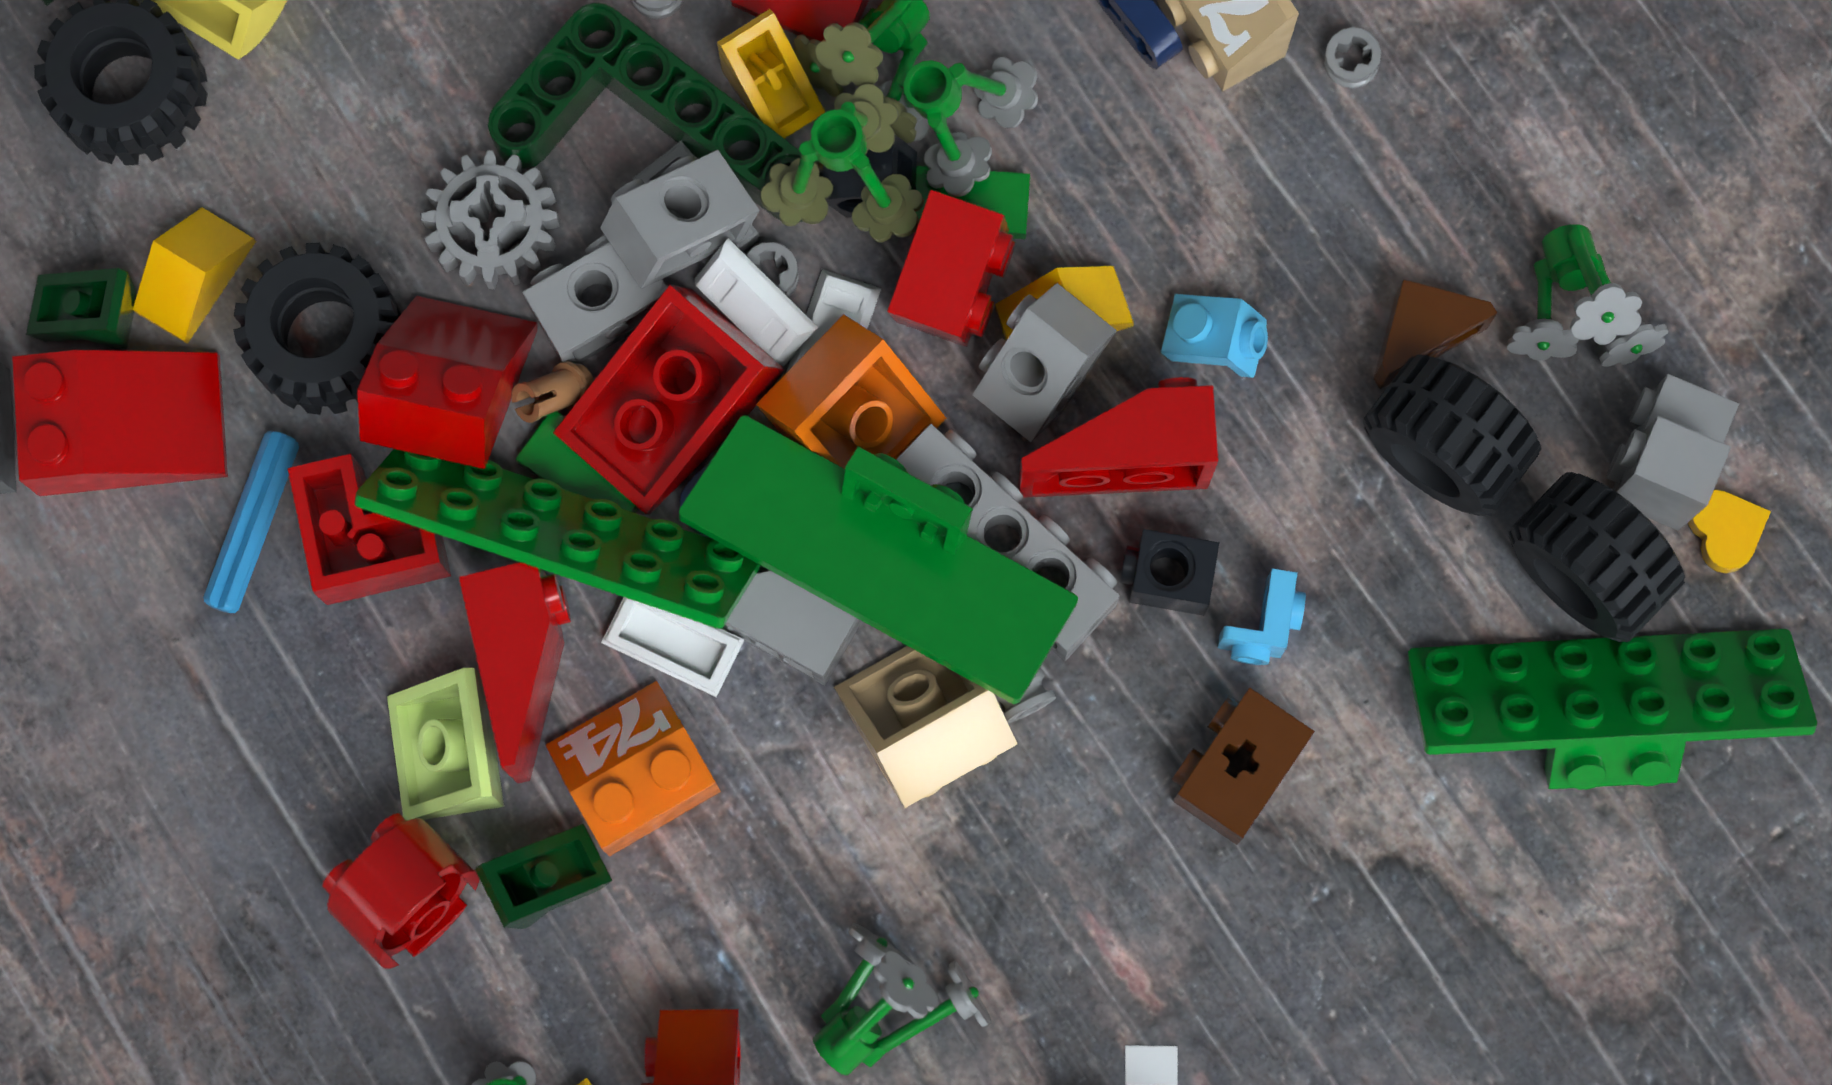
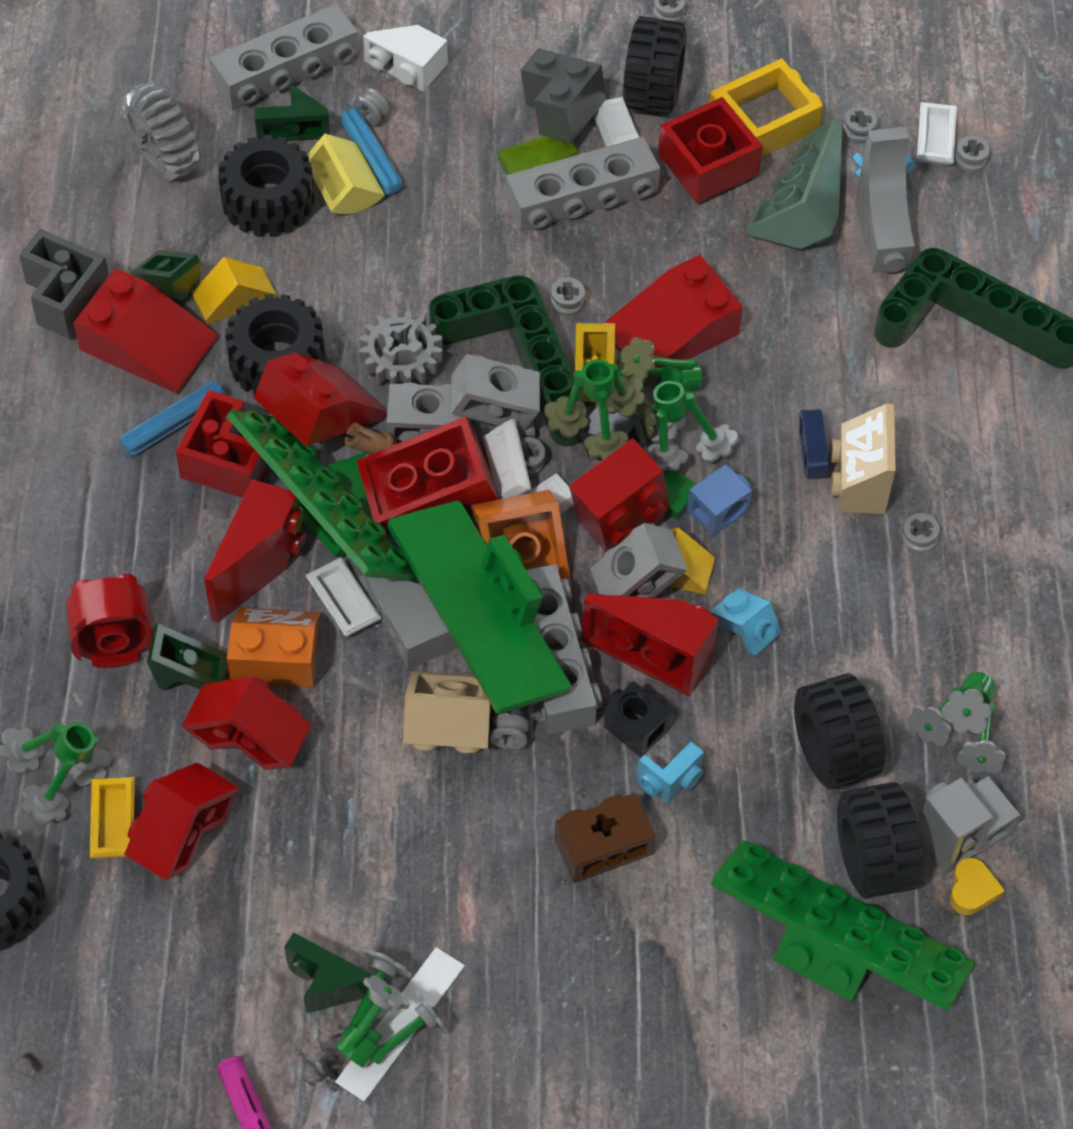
camera: 30 degrees right, 20 degrees down
(445, 747) = (179, 581): yellowish green slope -> none
(684, 911) = (248, 717): none -> red brick
(853, 1034) = (290, 838): plant -> none
(1070, 179) = (719, 500): none -> medium blue brick
(1428, 324) = (880, 679): reddish brown slope -> none

